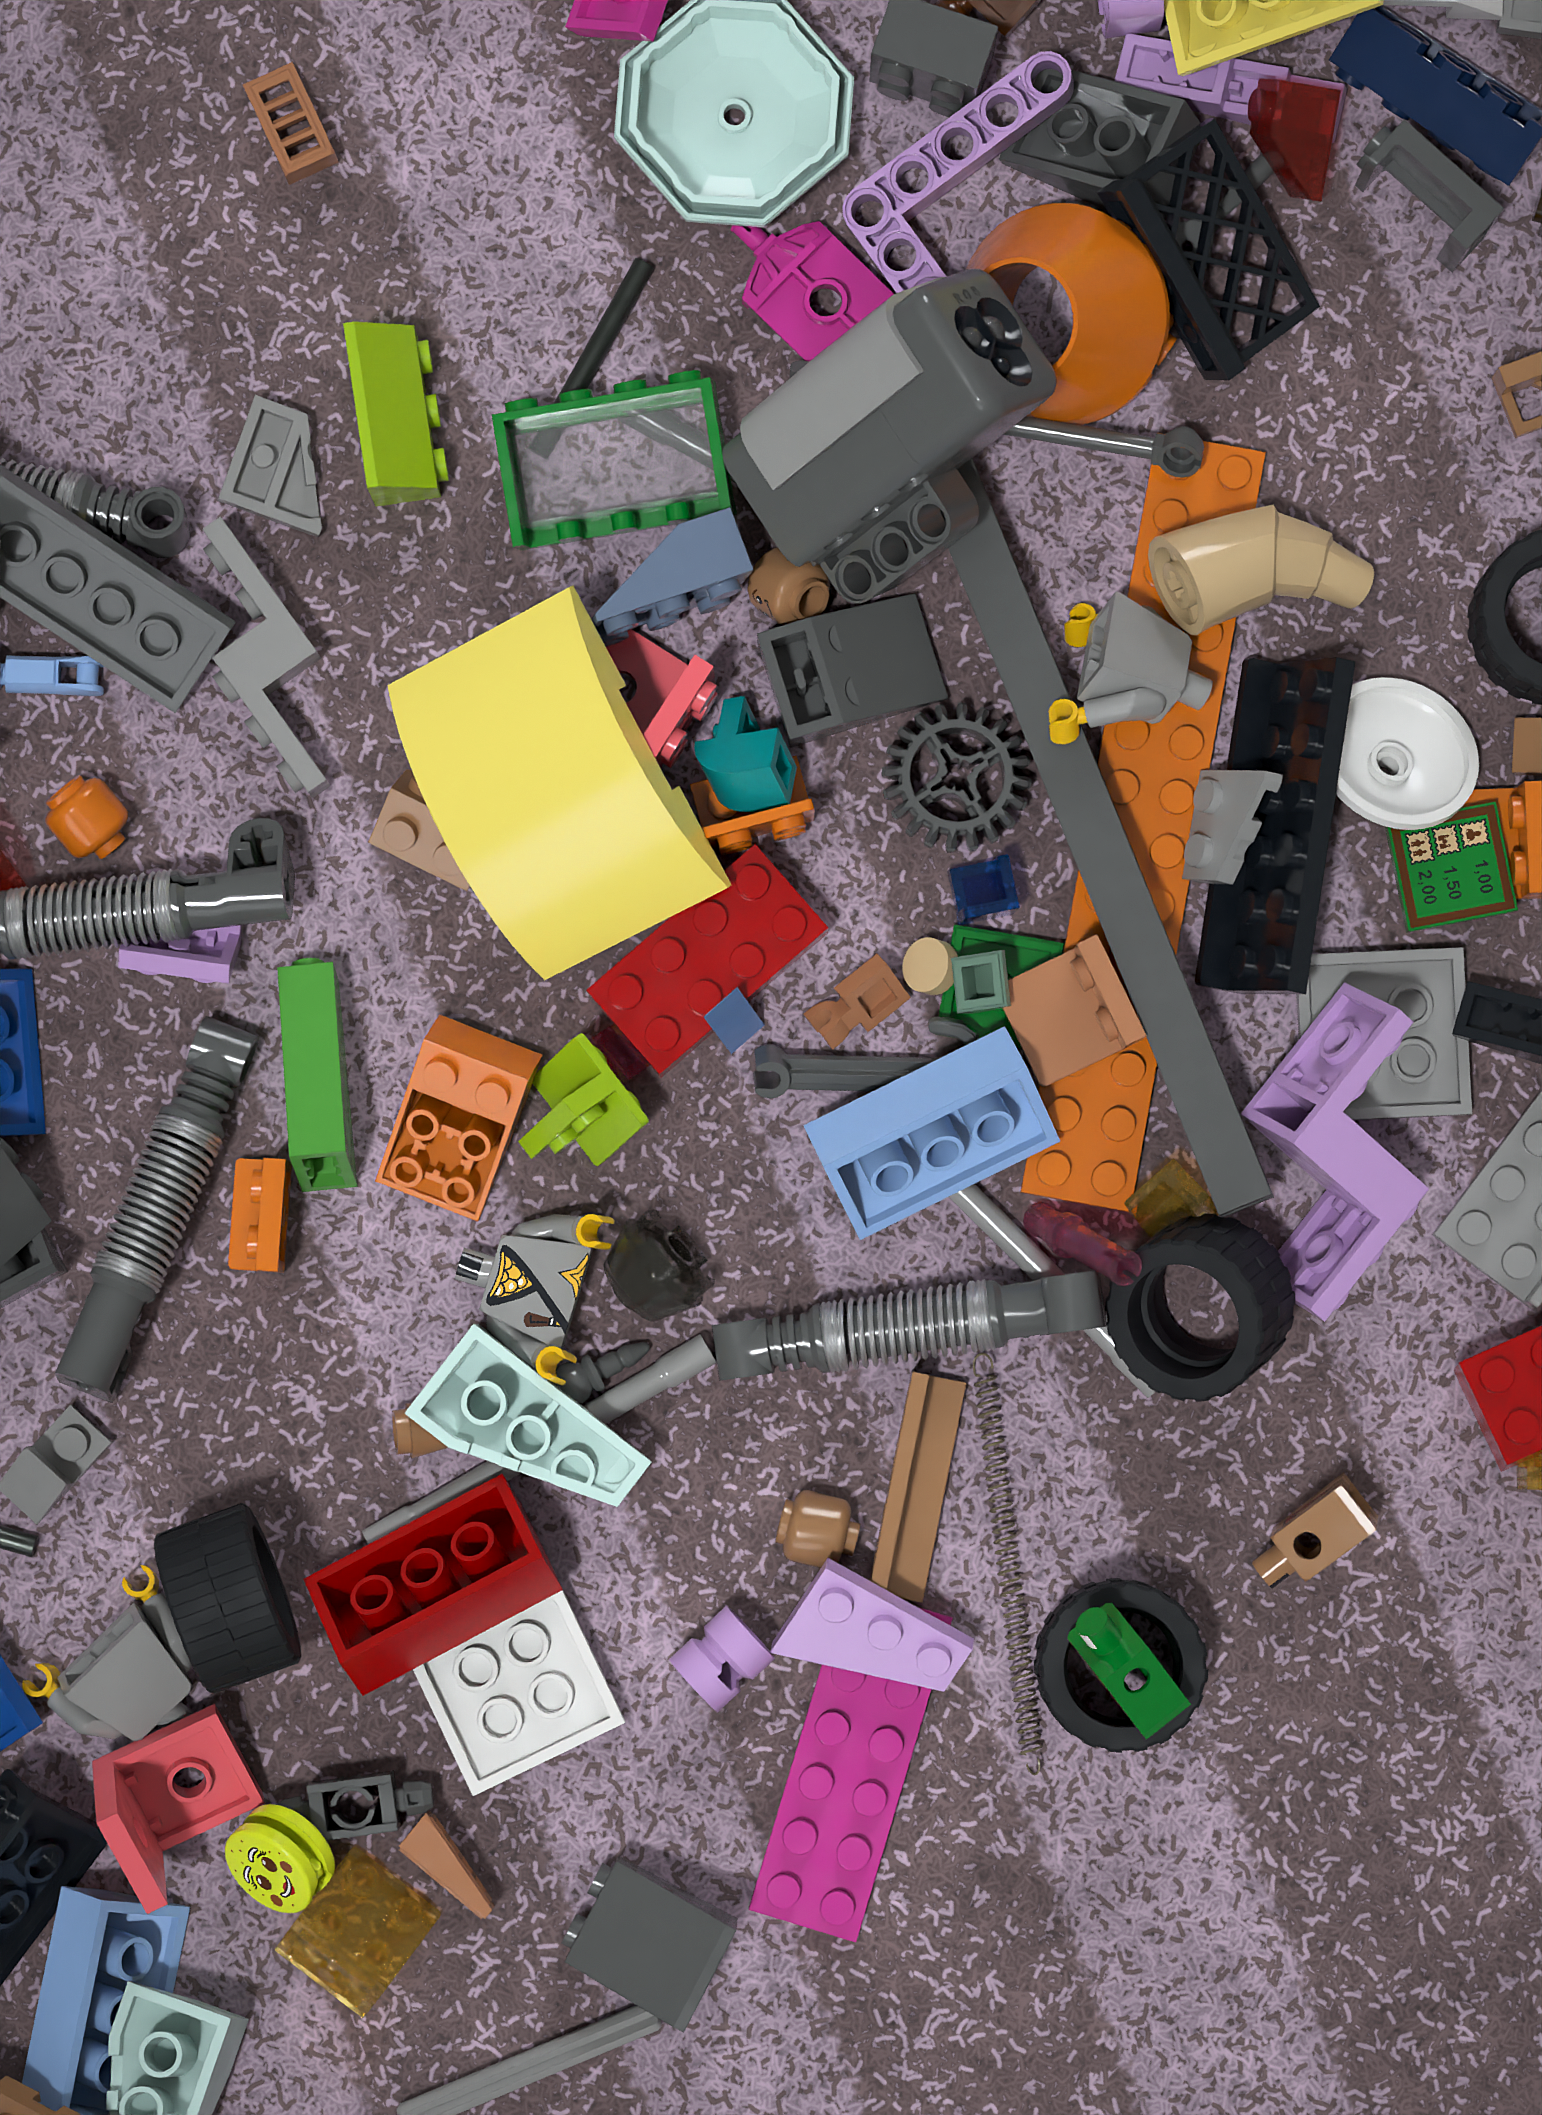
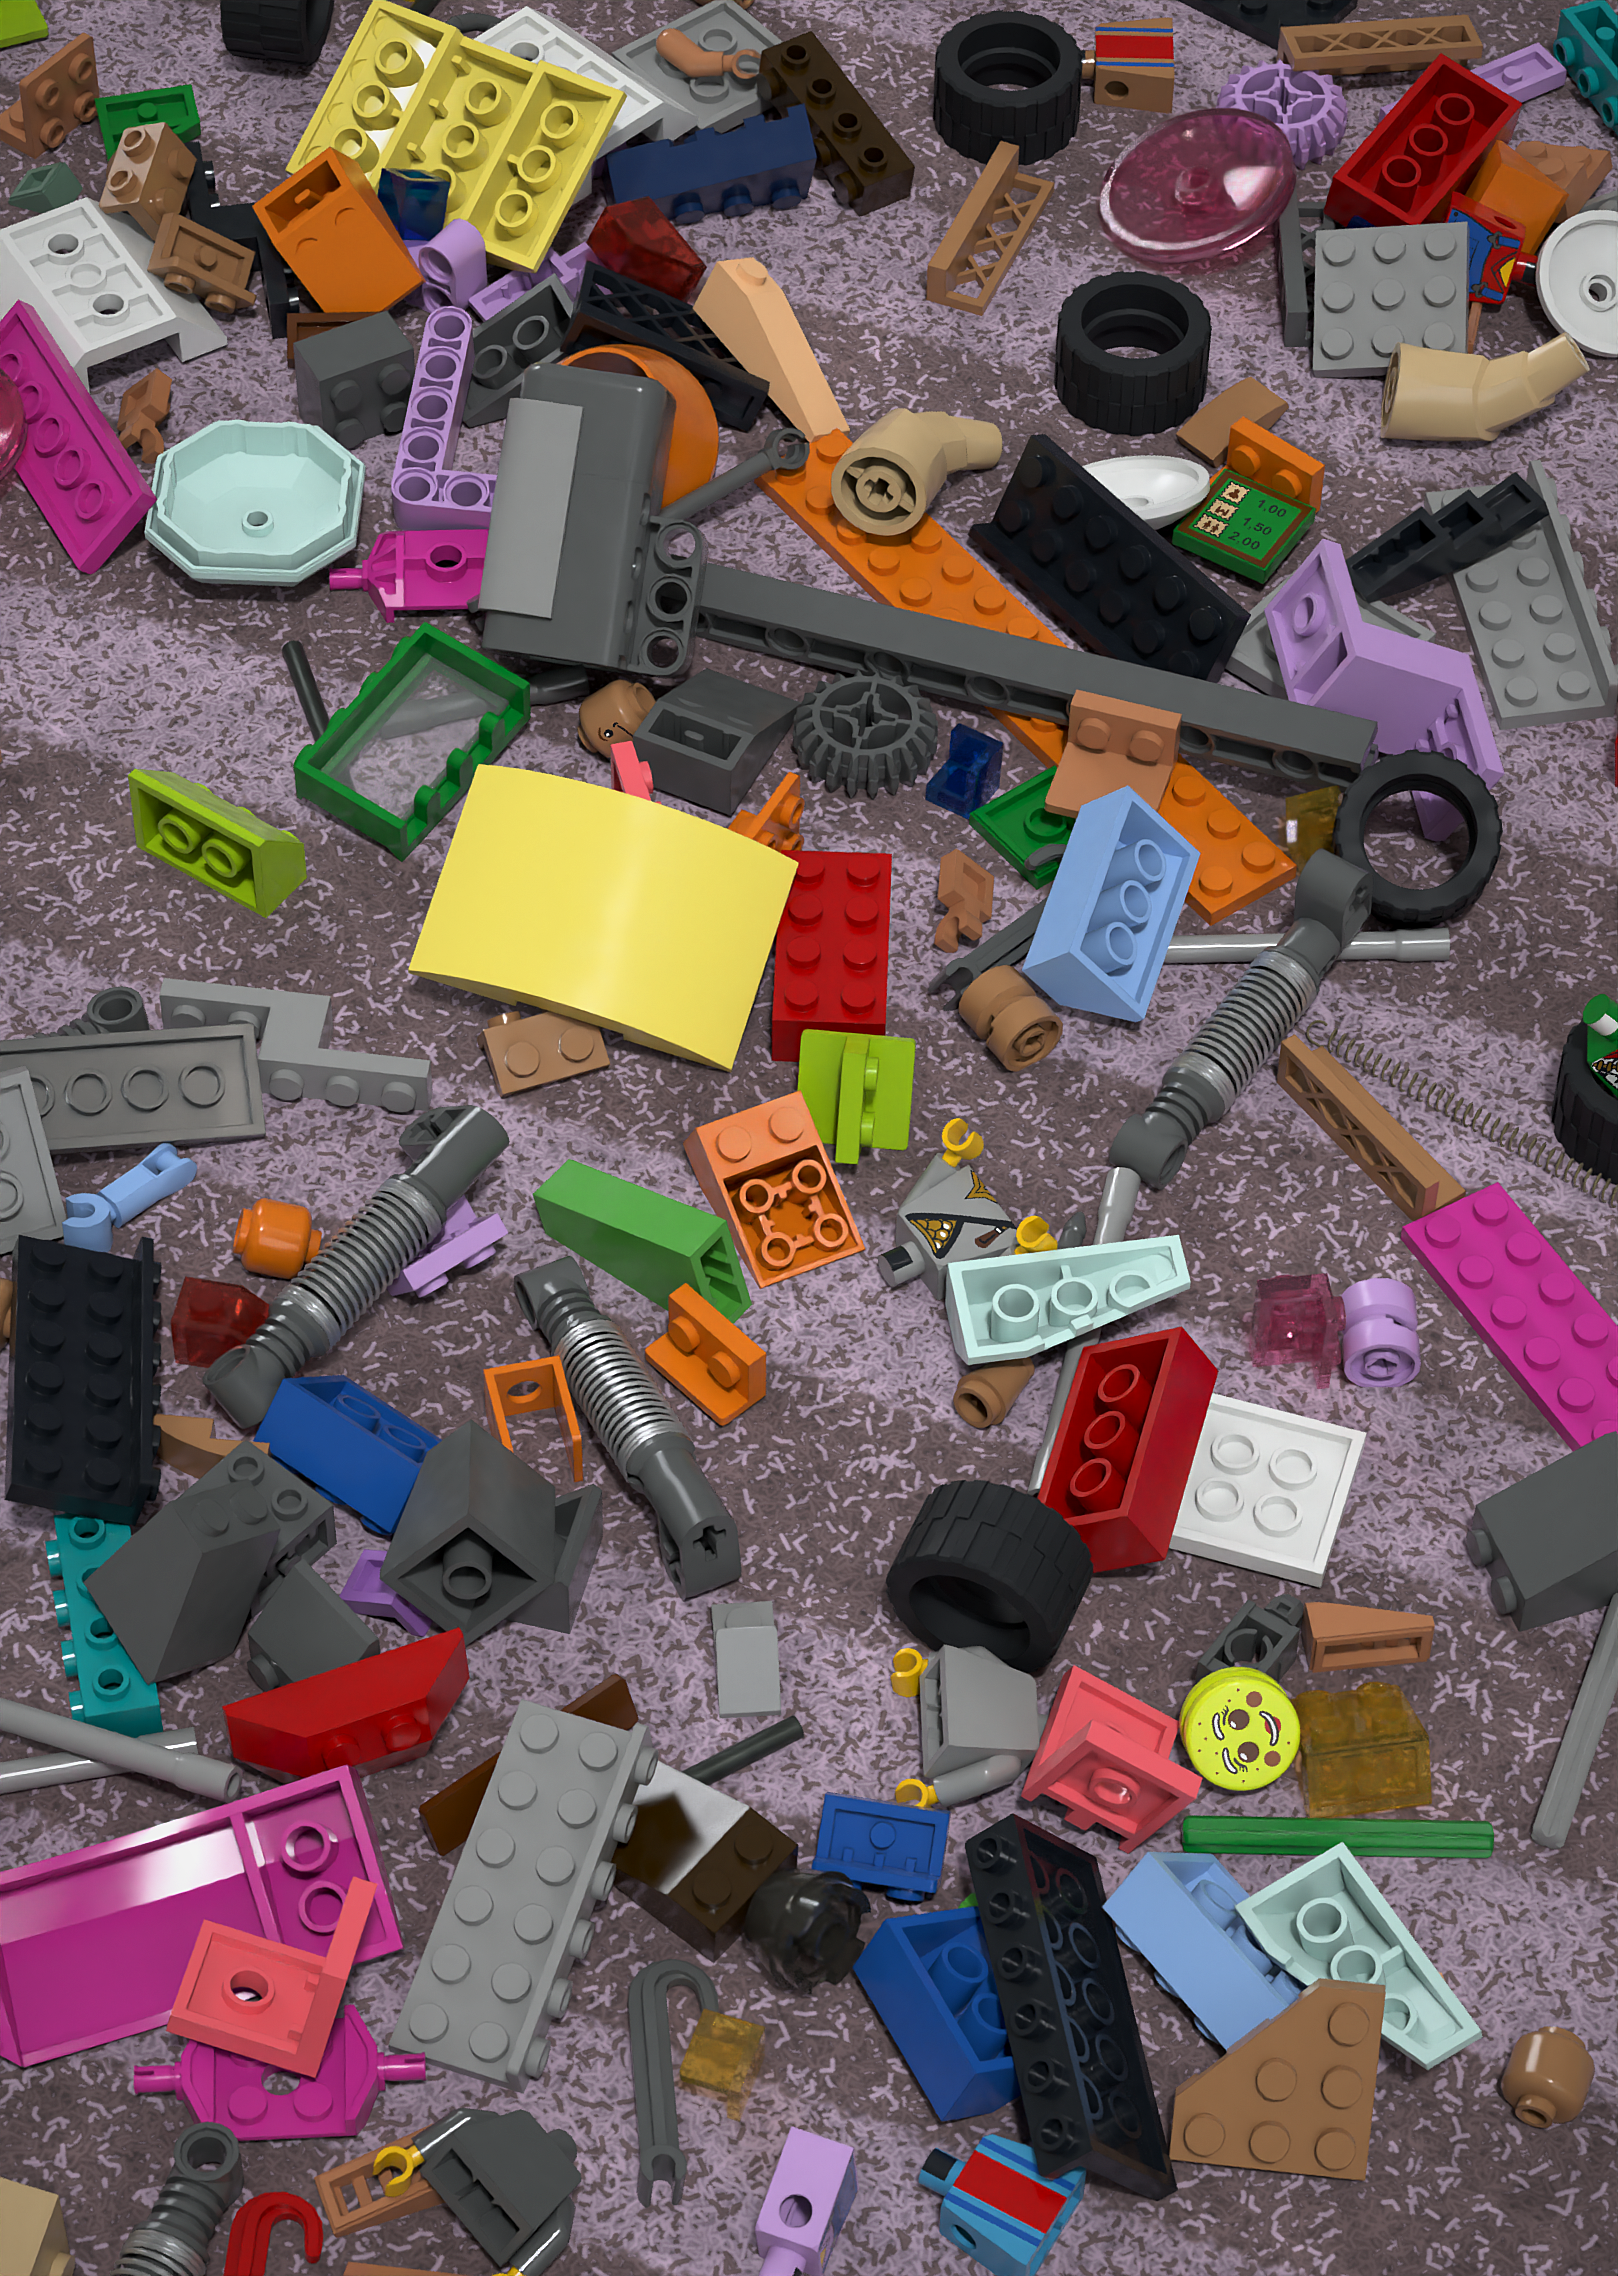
camera: 50 degrees left, 35 degrees down
(69, 1131) = (551, 1393): none -> orange piece
(274, 468) = (165, 942): light grey wing -> none
(276, 1980) = (1319, 1835): none -> green axle
(656, 1268) = (1030, 1142): clear smoke cone -> none
(661, 1591) = (1297, 1323): none -> clear pink bracket
(689, 569) = (547, 726): sand blue slope -> none
(734, 1020) = (895, 961): medium blue sticker -> none
(746, 764) = (725, 796): teal brick -> none
(770, 1143) = (1010, 1017): none -> medium nougat wheel
(816, 1529) = (1339, 1210): medium nougat head -> none
(870, 1631) = (1456, 1210): lavender wing -> none
(929, 966) = (986, 842): tan tile -> none
(981, 982) = (1034, 803): sand green slope -> none
(1071, 1237) = (1277, 887): clear pink pin -> none
(1129, 669) = (903, 555): light grey torso -> none
(1224, 822) = (1071, 597): light grey wing -> none
(1300, 318) = (763, 334): none -> light nougat wedge
(1436, 184) = (769, 213): dark grey panel -> none

